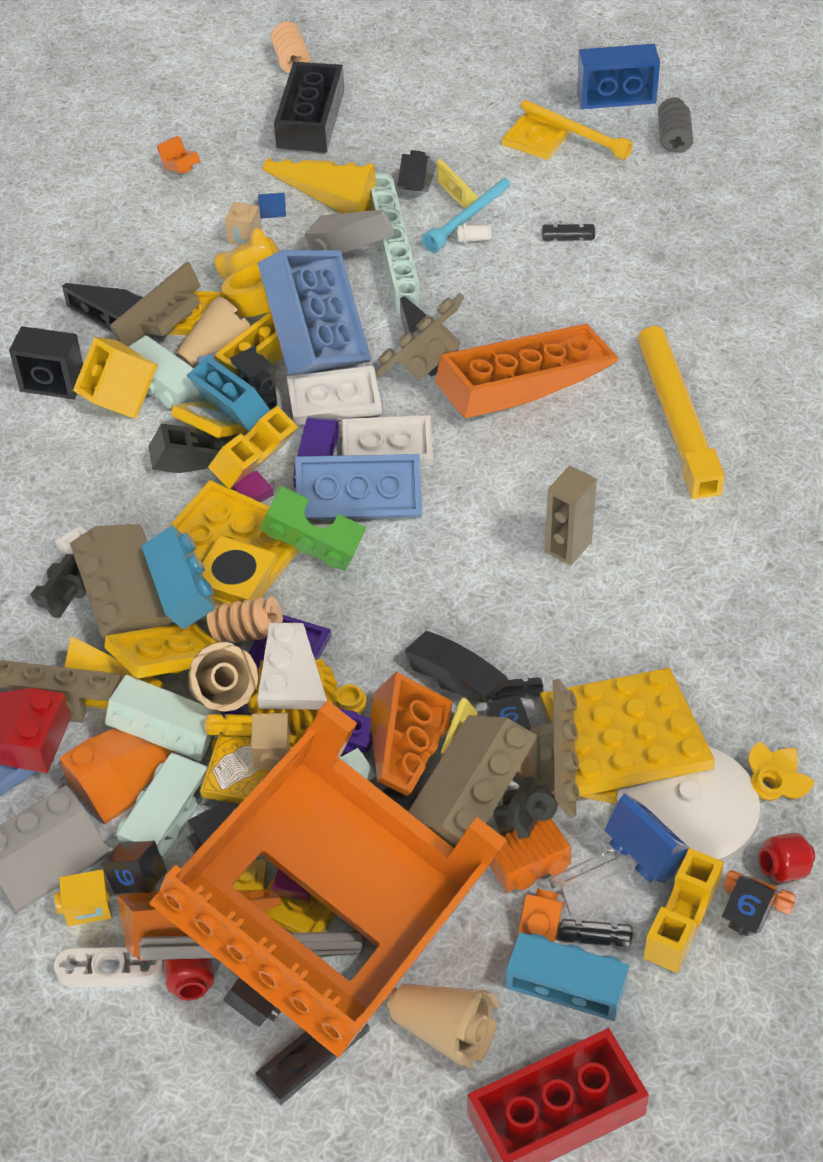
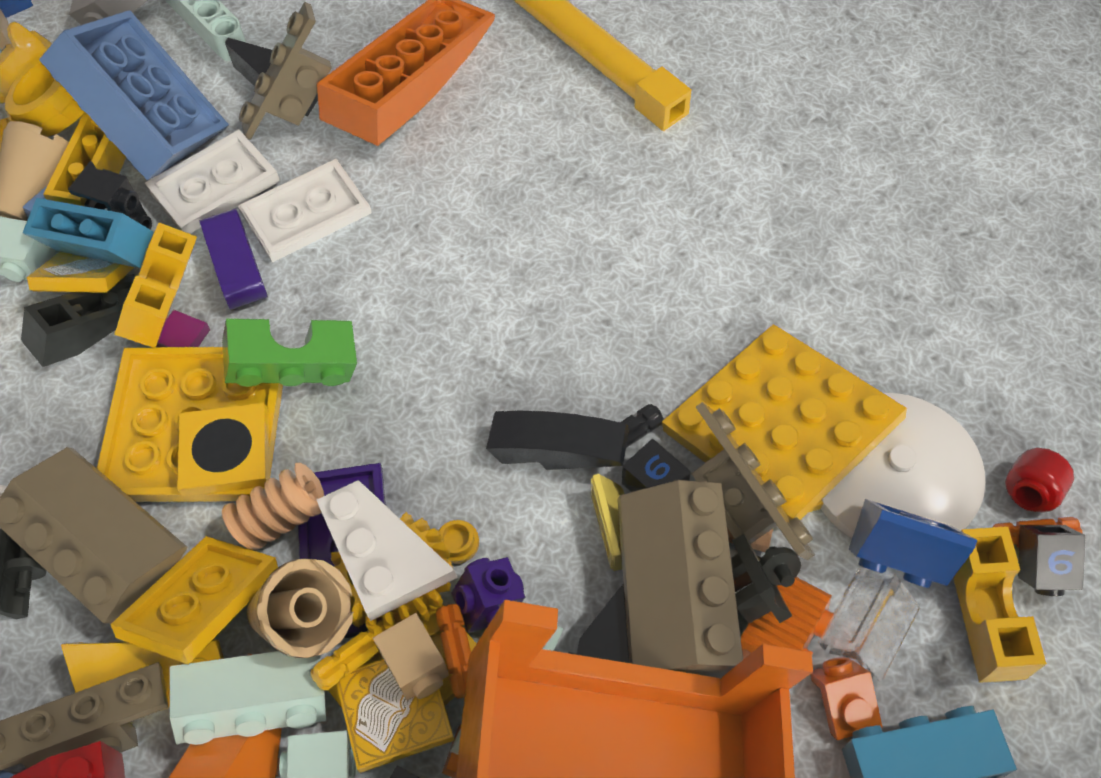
camera: 30 degrees left, 10 degrees up
(178, 577) = (161, 494): dark azure brick -> none
(360, 486) = (310, 274): medium blue plate -> none
(406, 730) = (552, 548): orange wedge -> none
(570, 515) = (574, 201): dark tan brick -> none
(596, 932) = (914, 679): black axle -> none
(779, 771) = (954, 390): yellow plate -> none

